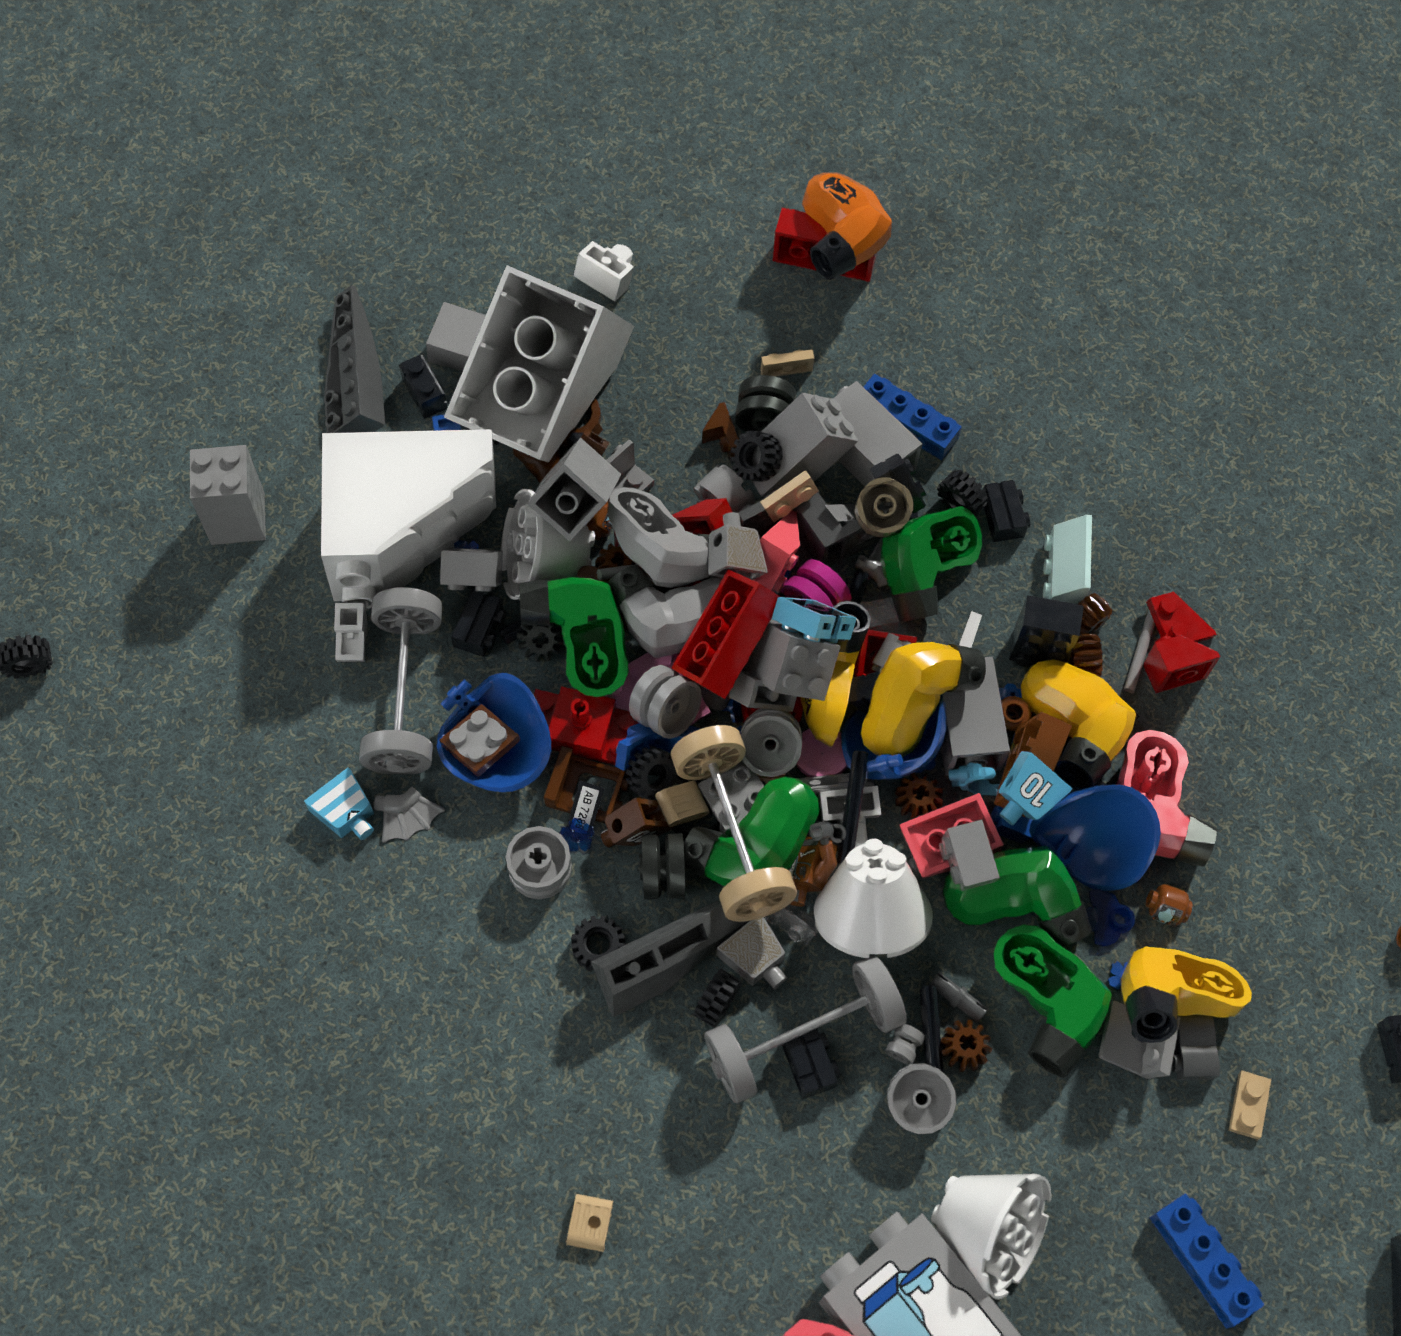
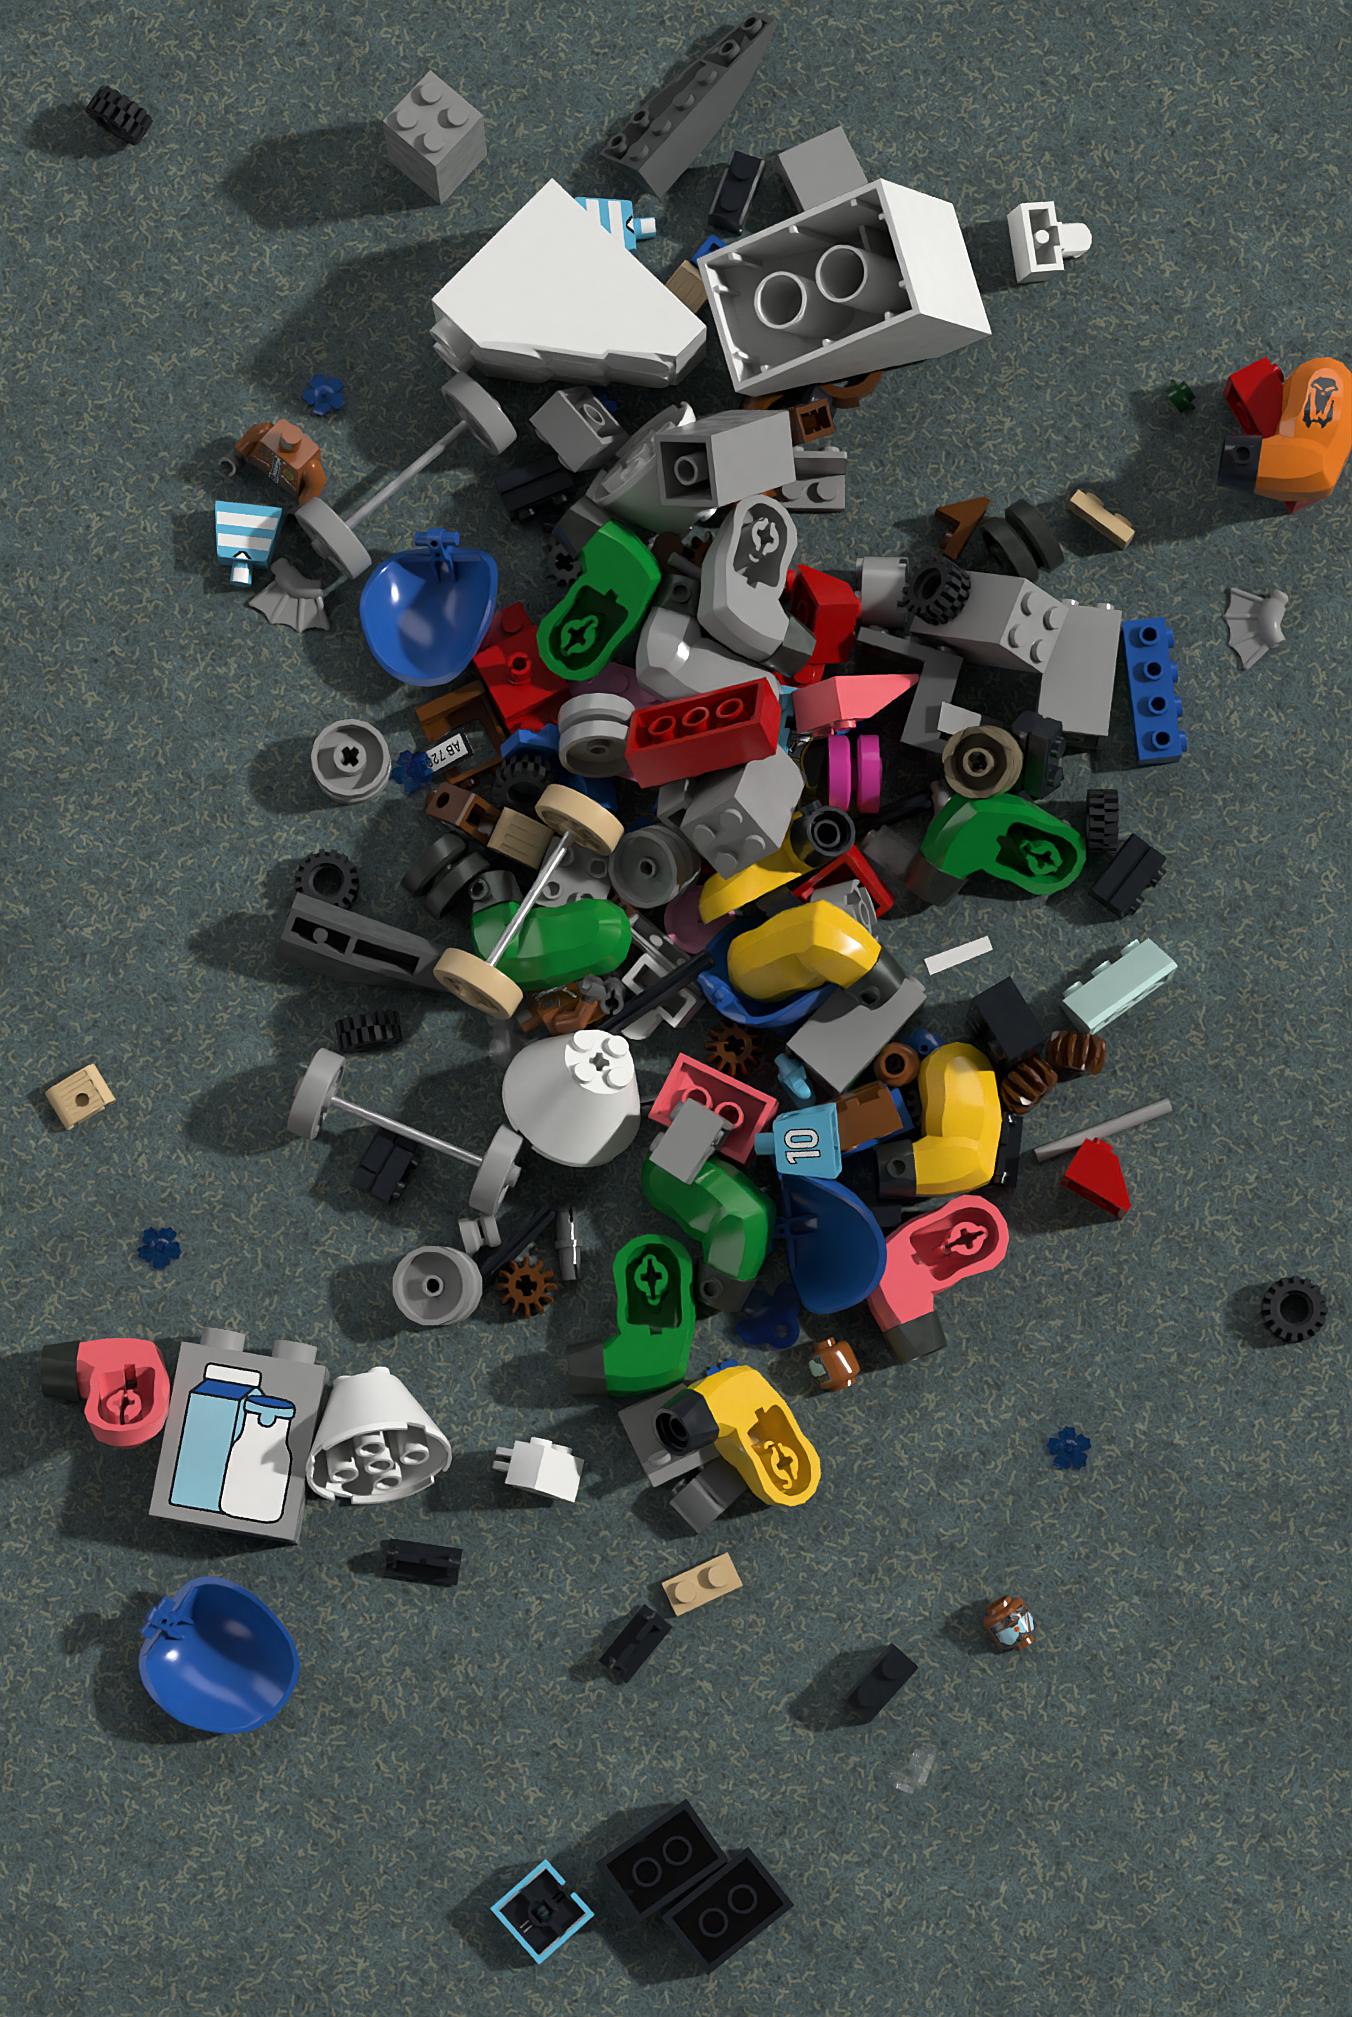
camera: 50 degrees right, 15 degrees up
(305, 692) = (324, 394): none -> blue plant
(319, 740) = (284, 457): none -> dark orange torso
(350, 632) = (420, 376): white brick -> none
(479, 740) = (414, 601): piece -> none
(735, 549) = (799, 664): light grey torso -> none
(735, 1260) = (159, 1247): none -> clear blue plant
(754, 953) = (442, 1029): light grey torso -> none
(755, 276) = (1180, 395): none -> dark green plate
(789, 496) = (918, 661): tan plate -> none
(813, 619) = (784, 800): medium azure piece -> none
(915, 342) = (1255, 624): none -> light grey arm
(1095, 1270) = (423, 1561): none -> black hinge
(1099, 1135) = (541, 1468): none -> white brick
(1176, 618) = (1156, 1144): red wing -> none
(1207, 1261) = (516, 1649): blue brick -> none
(1258, 1180) = (635, 1643): none -> black hinge
(1328, 819) = (1069, 1449): none -> clear blue plant
(1330, 641) = (1309, 1294): none -> black tyre

